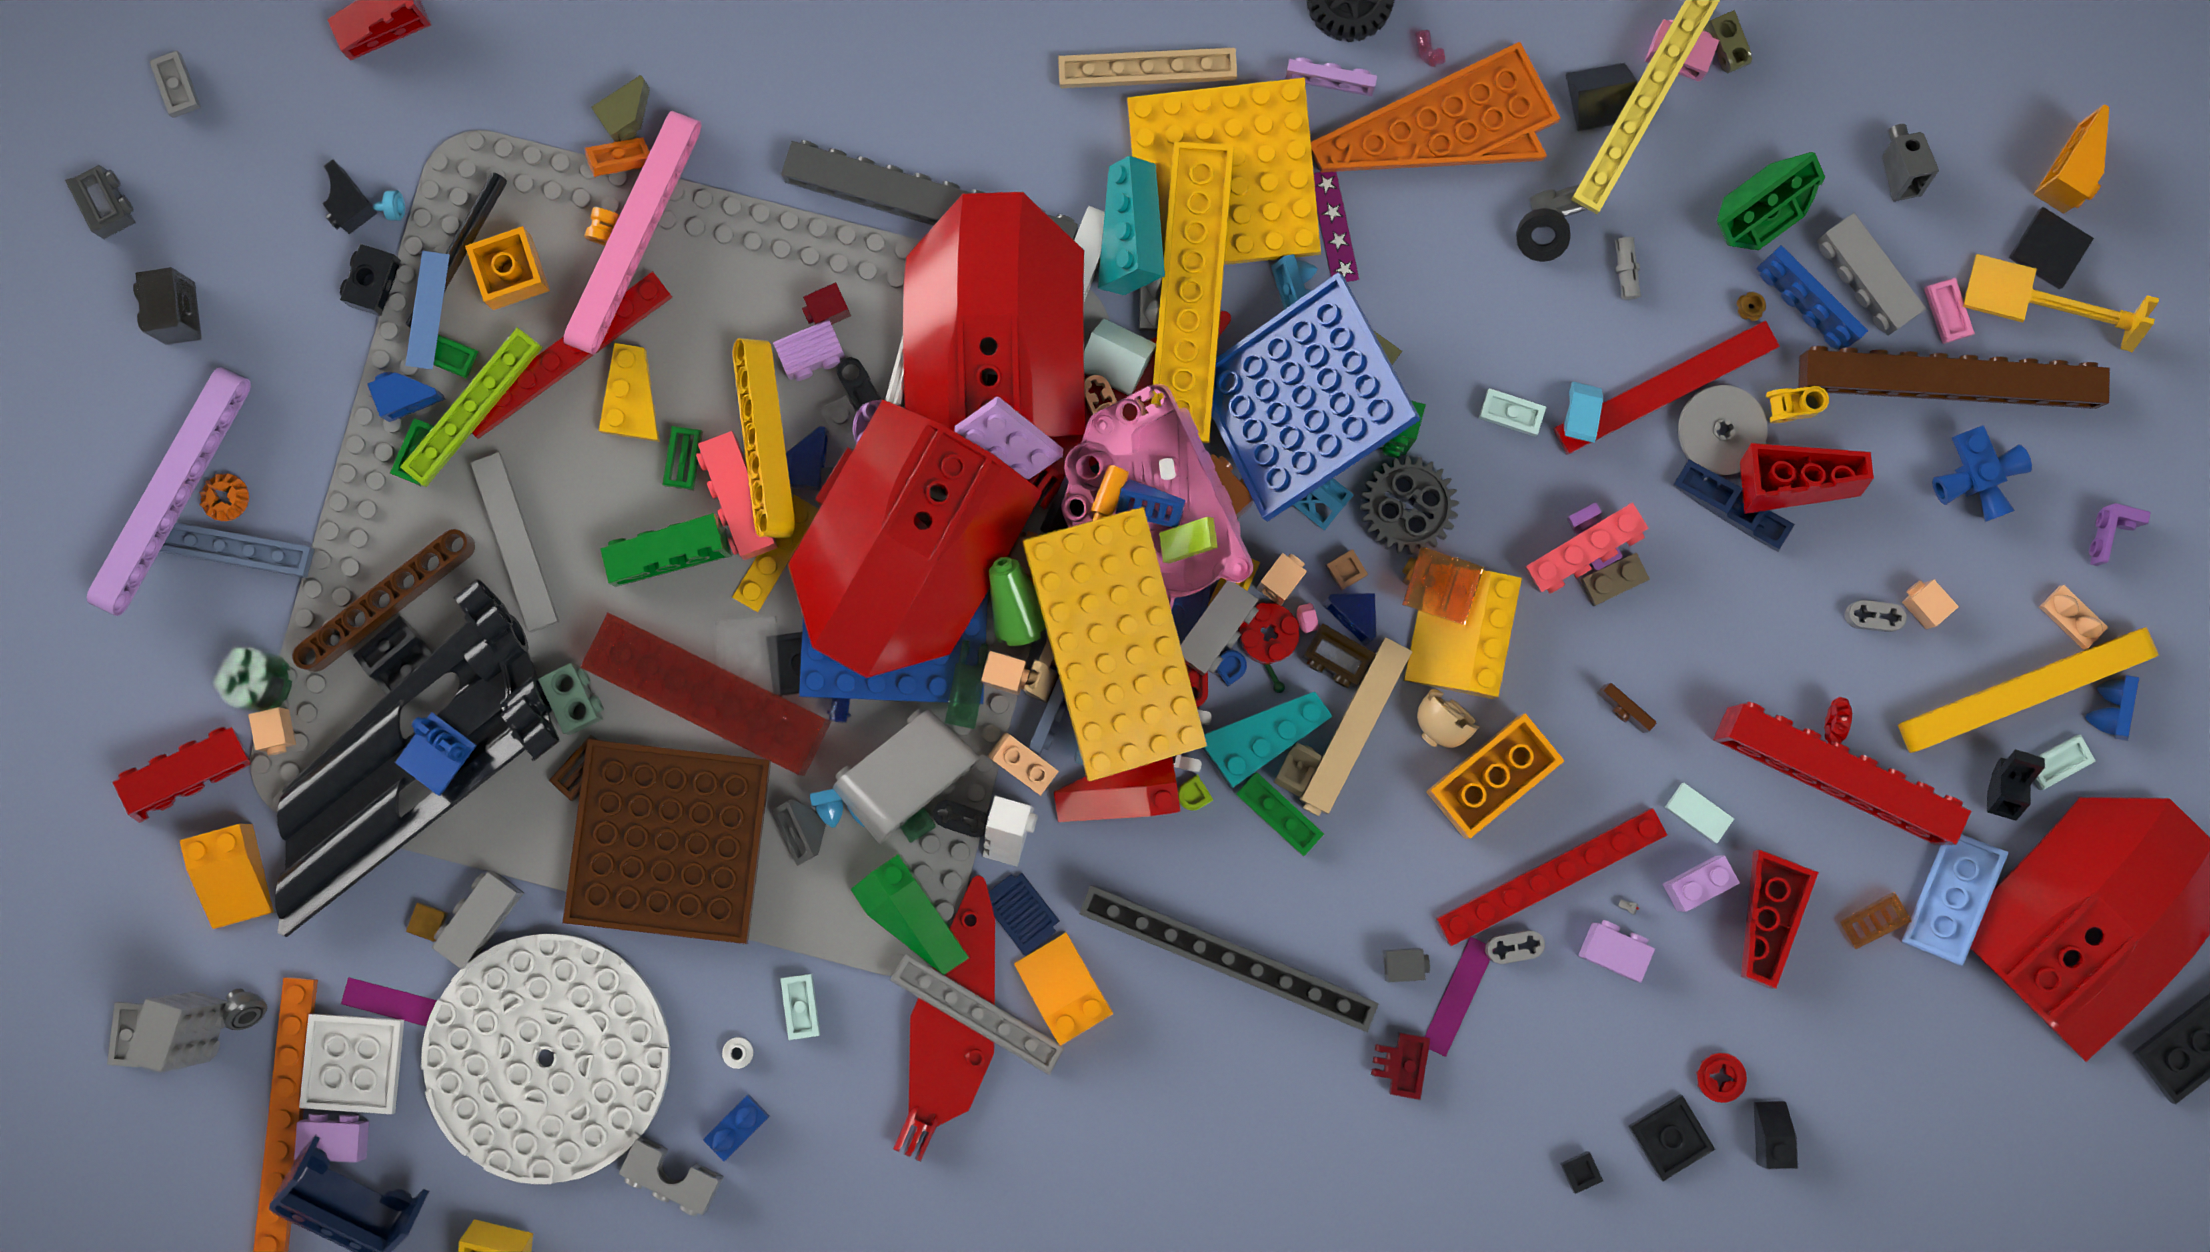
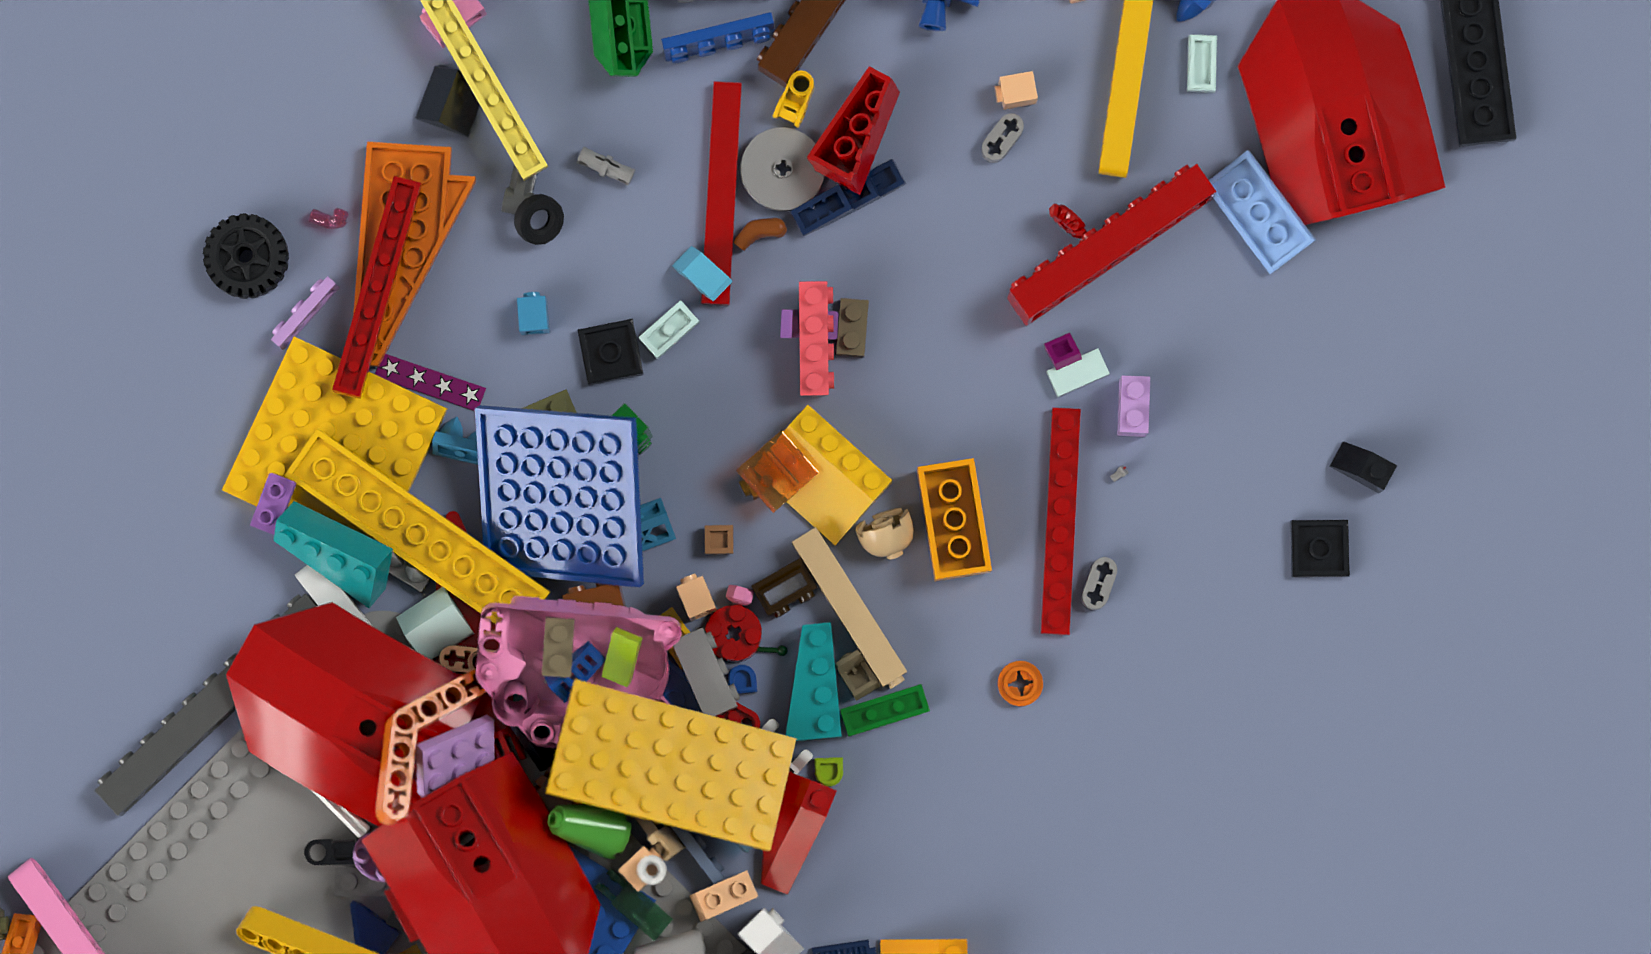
camera: 60 degrees left, 0 degrees up
(809, 350) = (280, 876): lavender brick -> none
(825, 305) = (251, 842): dark red brick -> none
(998, 384) = (407, 741): none -> orange beam
(1008, 671) = (644, 876): none -> white plate
(1109, 492) = (546, 699): light orange cylinder -> none
(1143, 145) = (272, 502): none -> medium lavender bracket
(1147, 68) = (206, 459): tan plate -> none
(1164, 474) = (558, 647): none -> dark tan plate
(1229, 958) = (975, 820): dark grey brick -> none
(1355, 613) = (758, 554): clear blue slope -> none
(1376, 940) = (1009, 675): none -> orange gear
(1394, 124) = (377, 287): none -> red plate
(1404, 1065) = (1141, 728): dark red hinge -> none
(1405, 965) = (1063, 680): dark grey brick -> none
(1421, 480) = (682, 436): dark grey gear -> none
(1452, 281) = (533, 314): none -> dark azure brick
(1458, 997) = (1113, 653): magenta sticker -> none
(1459, 371) = (610, 352): none -> black tile
(1581, 1172) = (1306, 636): black plate -> none
(1617, 951) = (1149, 504): lavender brick -> none
(1625, 708) = (960, 382): reddish brown plate -> none
(1654, 441) = (759, 229): none -> dark orange arm
(1711, 787) = (1063, 351): none -> magenta tile
(1729, 1089) = (1293, 467): red gear -> none
(1758, 303) = (692, 78): pearl gold plate -> none
(1774, 912) = (1186, 359): red wedge -> none
(1891, 925) = (1234, 260): clear orange slope -> none
(2011, 784) = (1196, 113): black brick -> none

